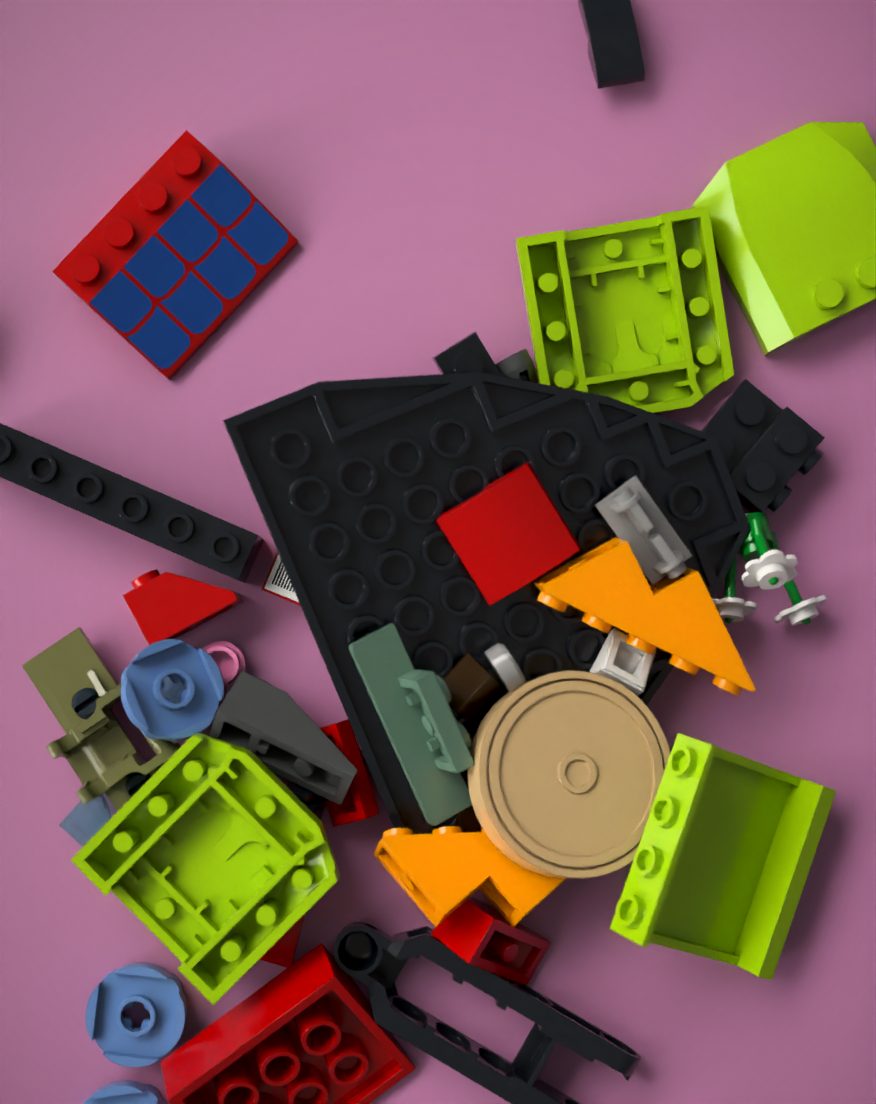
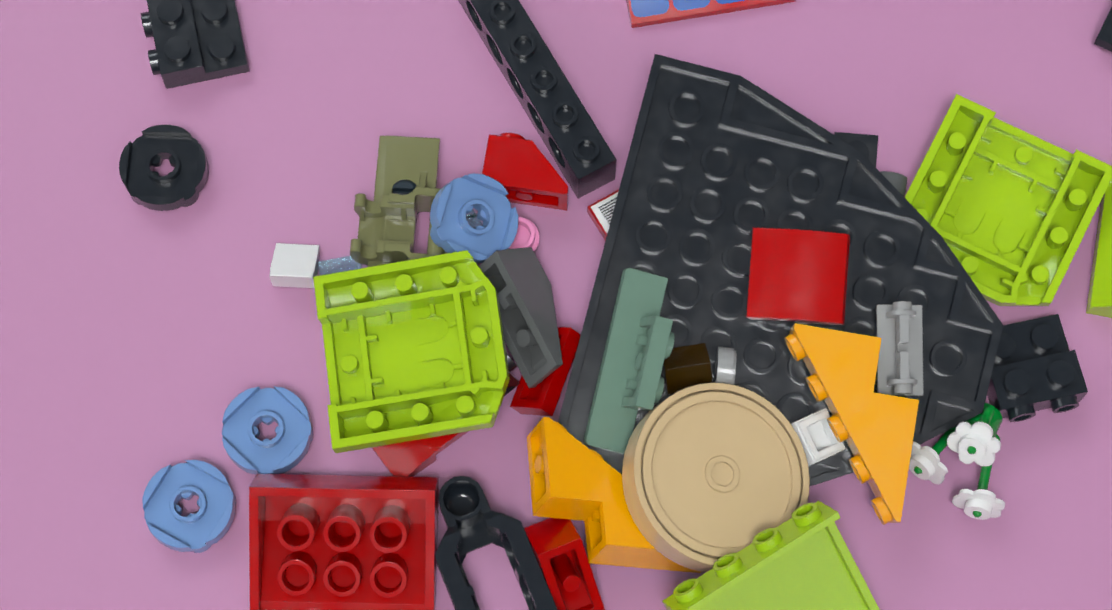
camera: 40 degrees right, 15 degrees down
(40, 841) = (294, 265): none -> white slope

